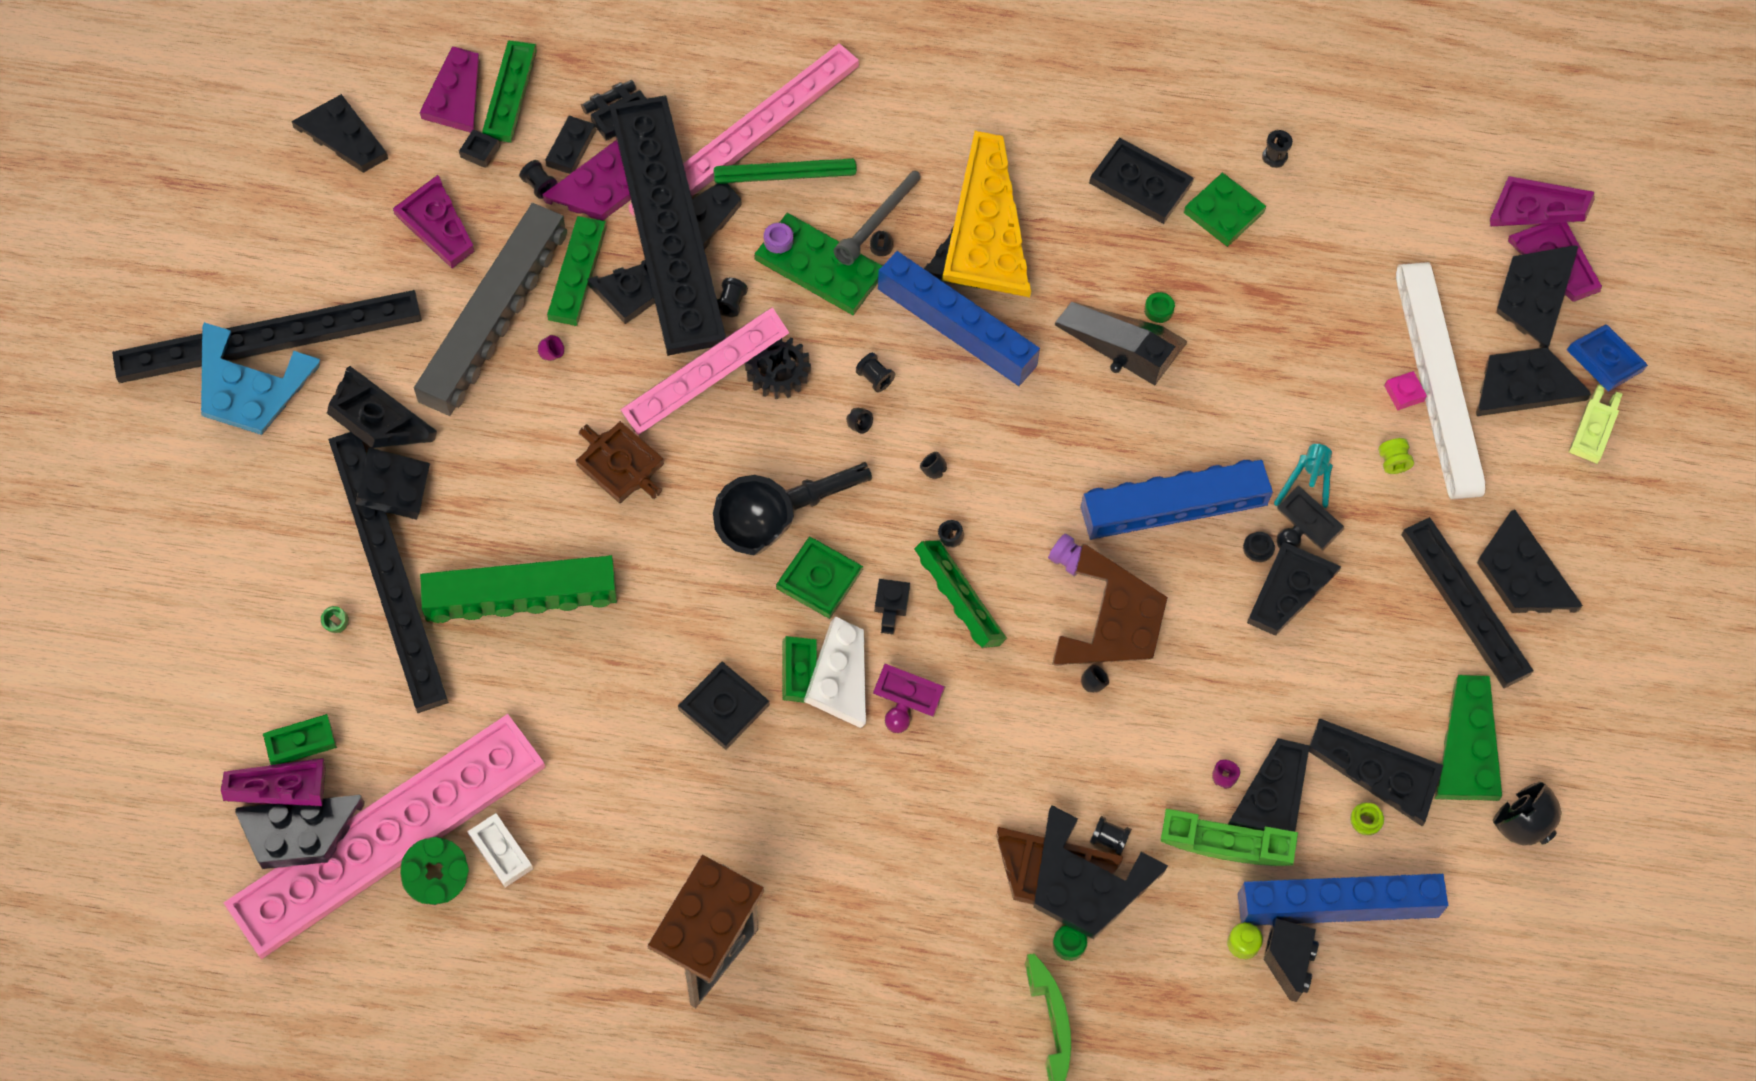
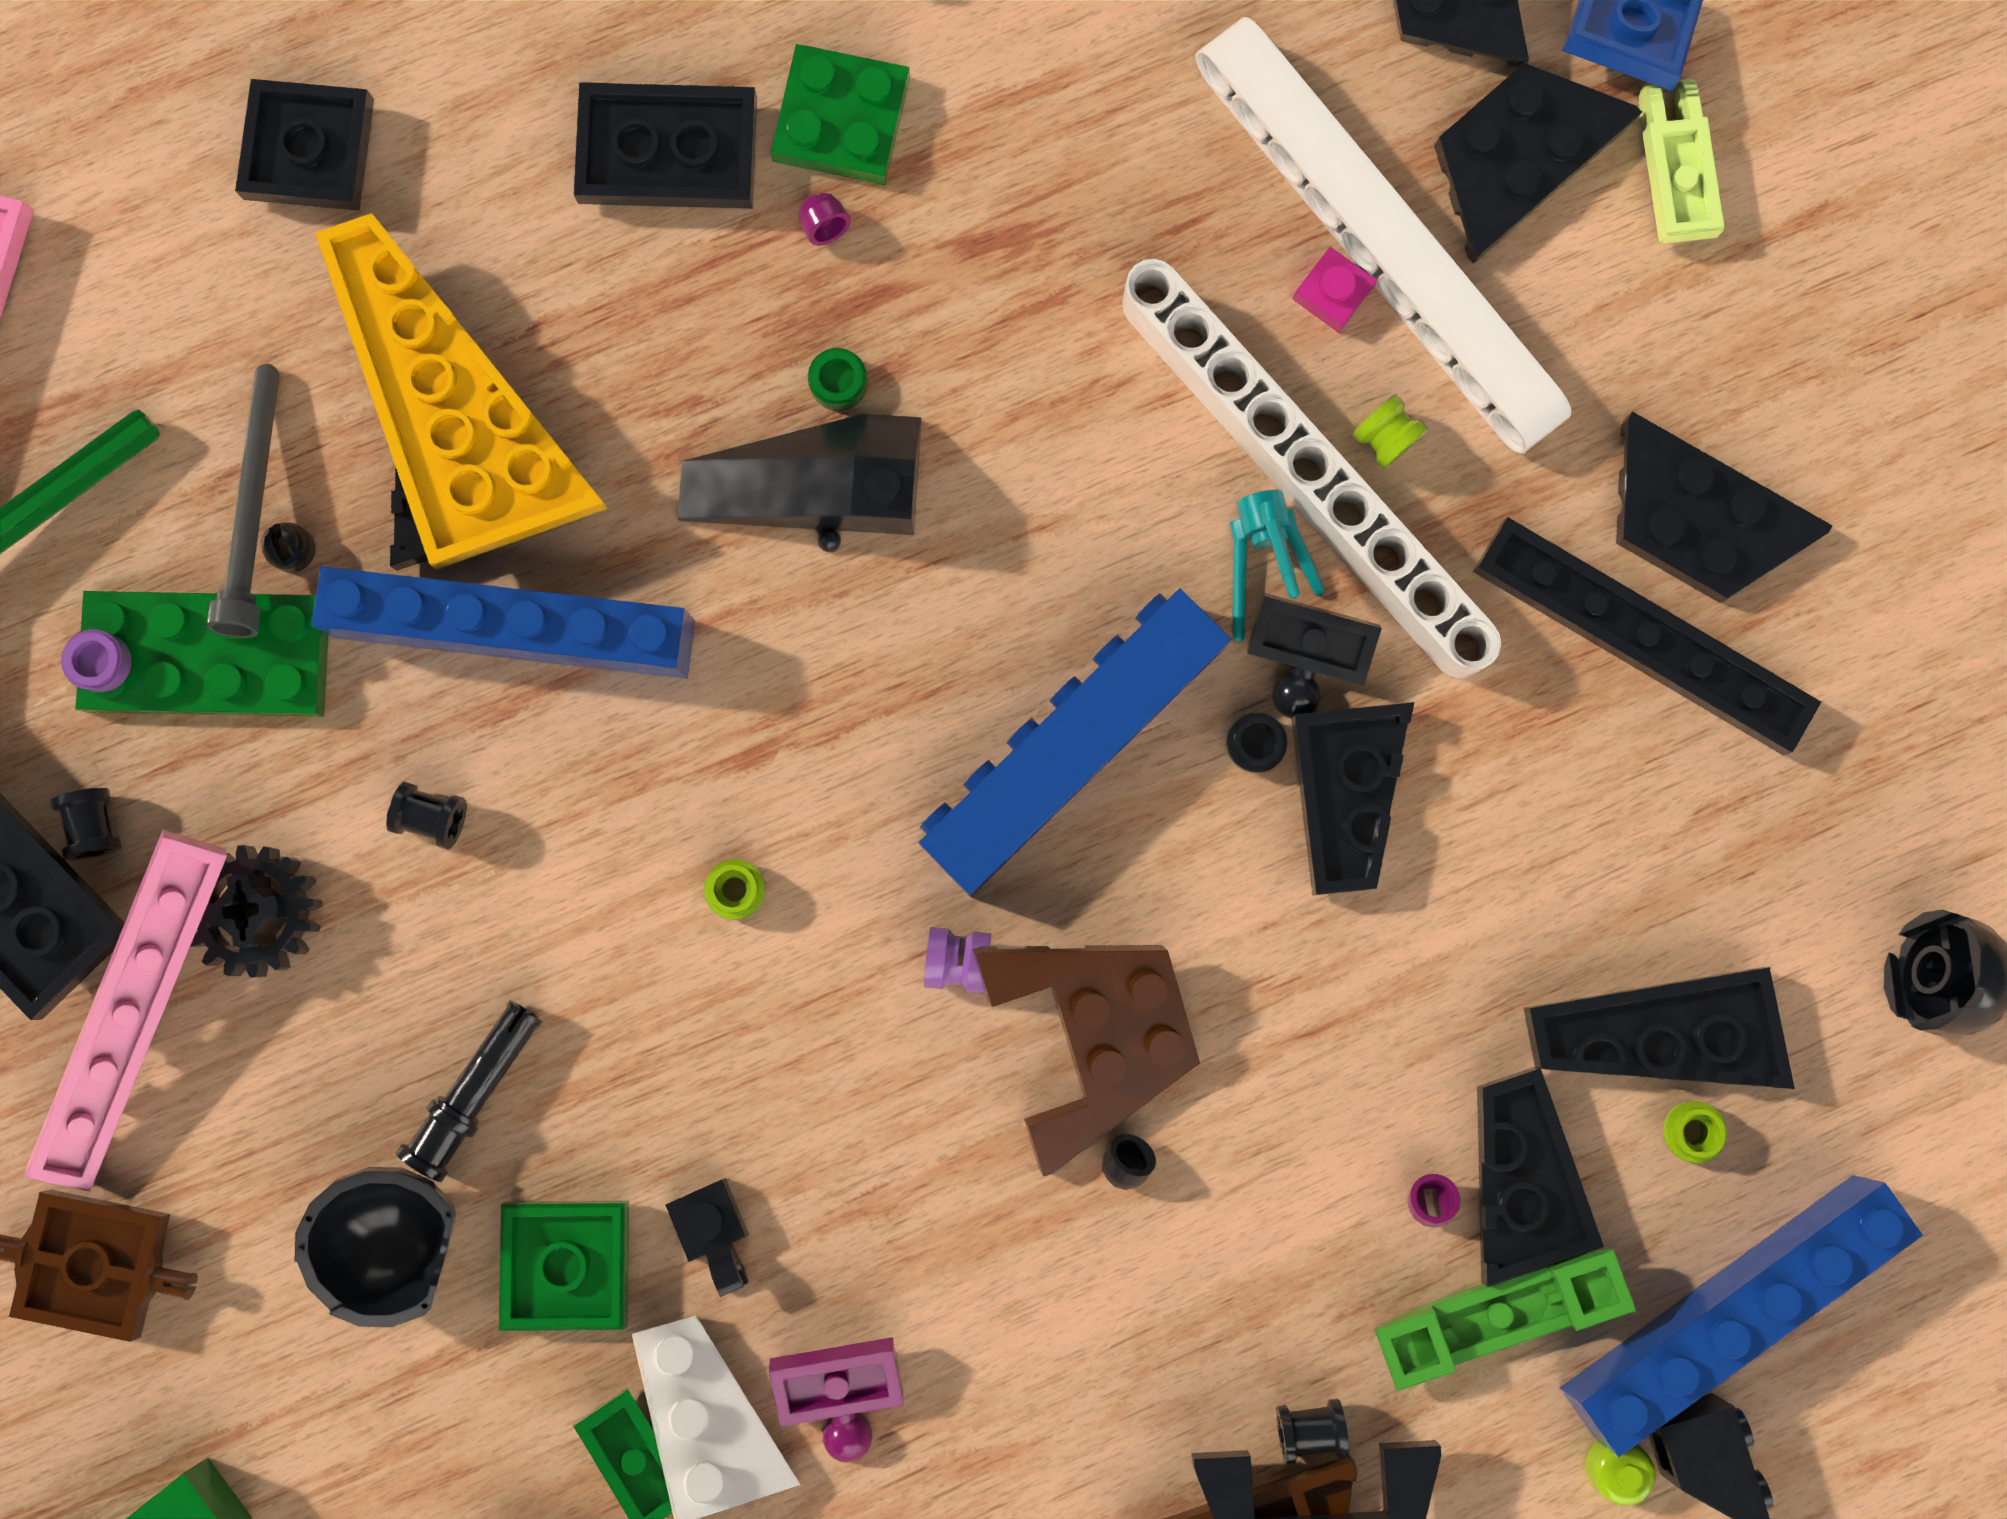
camera: 30 degrees left, 20 degrees up
(859, 414) = (458, 935): black hinge -> none
(933, 465) = (631, 931): black hinge -> none
(946, 532) = (727, 1048): black hinge -> none
(960, 593) = (817, 1149): green plate -> none
(987, 100) = (304, 144): none -> black plate
(988, 467) = (715, 889): none -> lime plate
(1195, 245) = (823, 219): none -> magenta hinge
(1348, 463) = (1313, 499): none -> white beam
(1470, 744) = (1783, 888): green wing -> none

